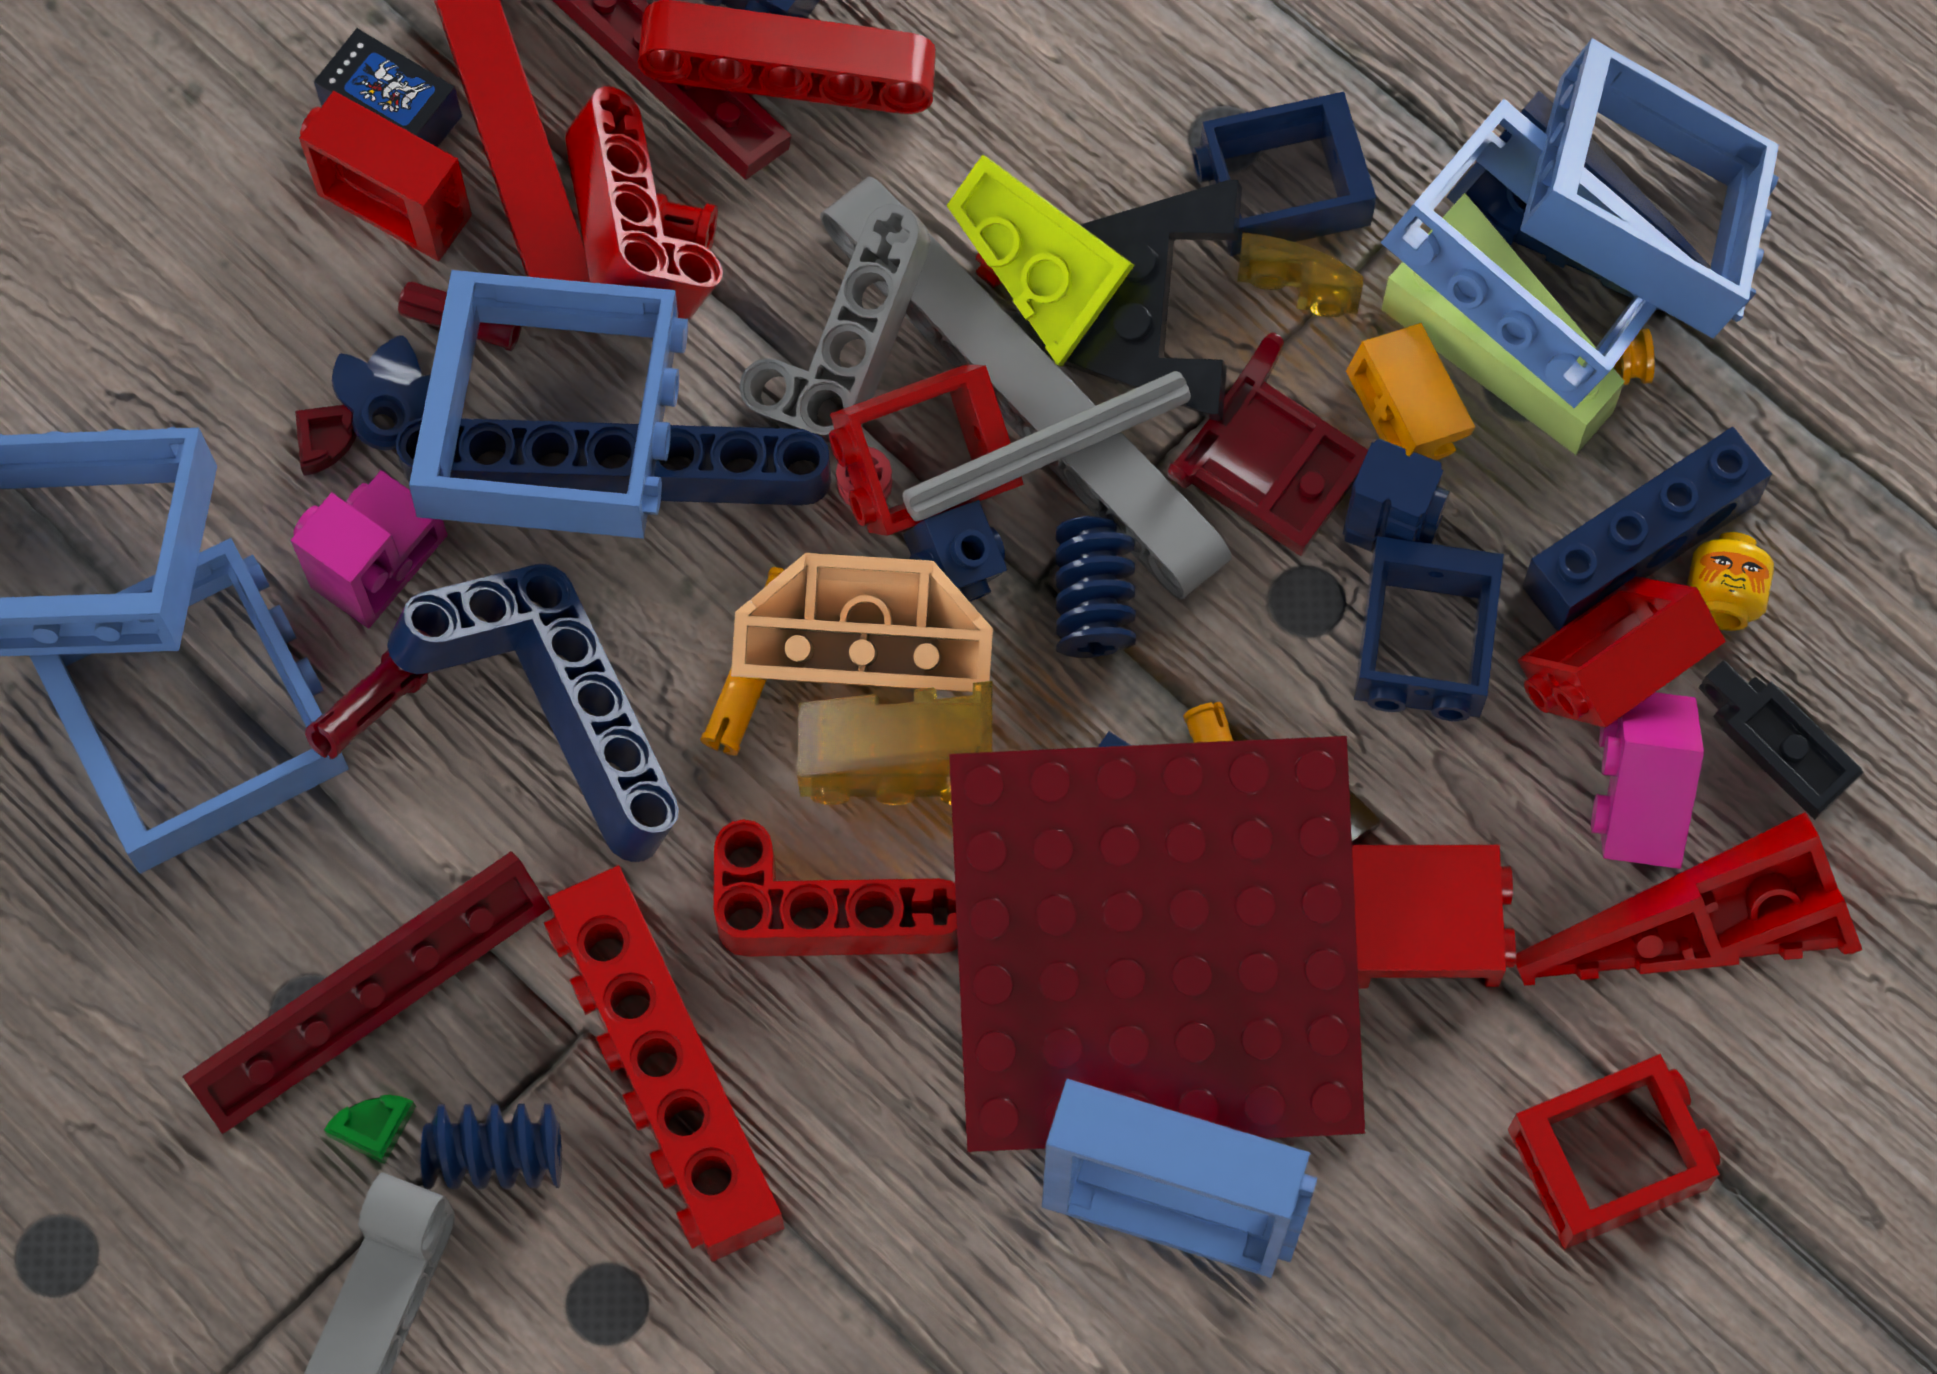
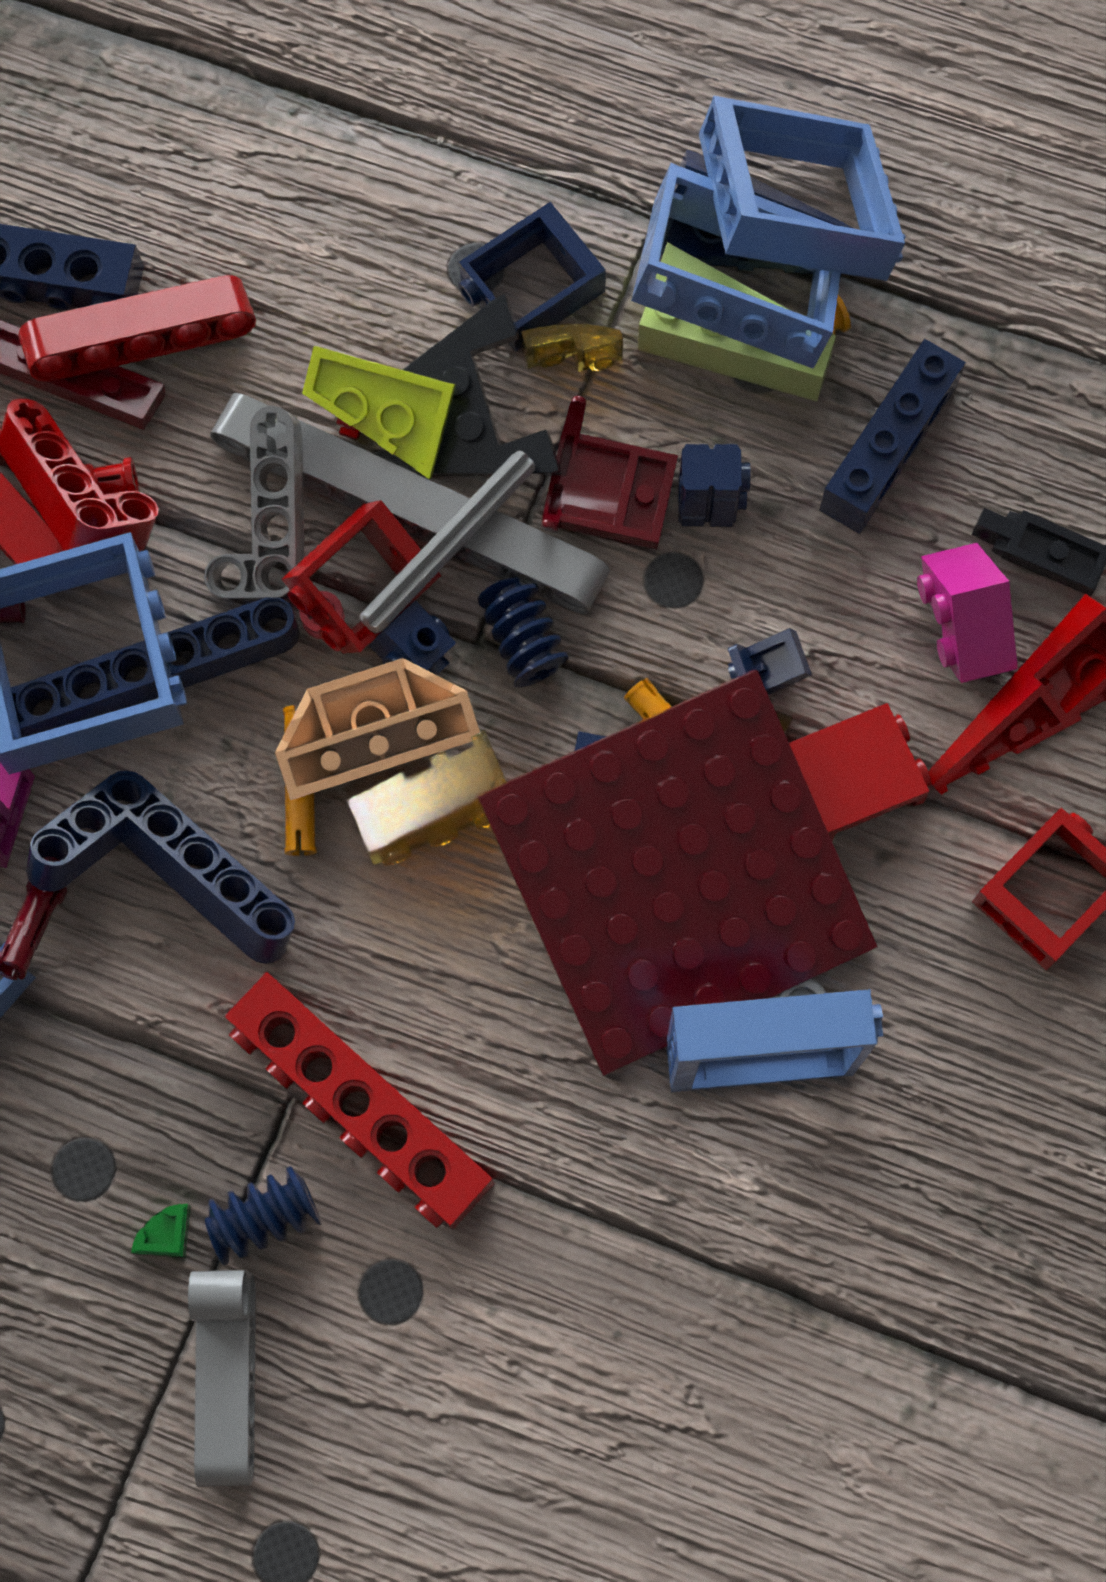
camera: 20 degrees left, 5 degrees up
(366, 992) = (119, 1140): dark red plate -> none
(840, 899) = (435, 931): red beam -> none
(1381, 743) = (776, 658): none -> dark blue bracket
(1409, 393) = (685, 402): light orange hinge -> none
(1438, 571) = (759, 522): dark blue window -> none
(1620, 651) = (914, 530): red window -> none
(1732, 579) = (963, 450): yellow head -> none

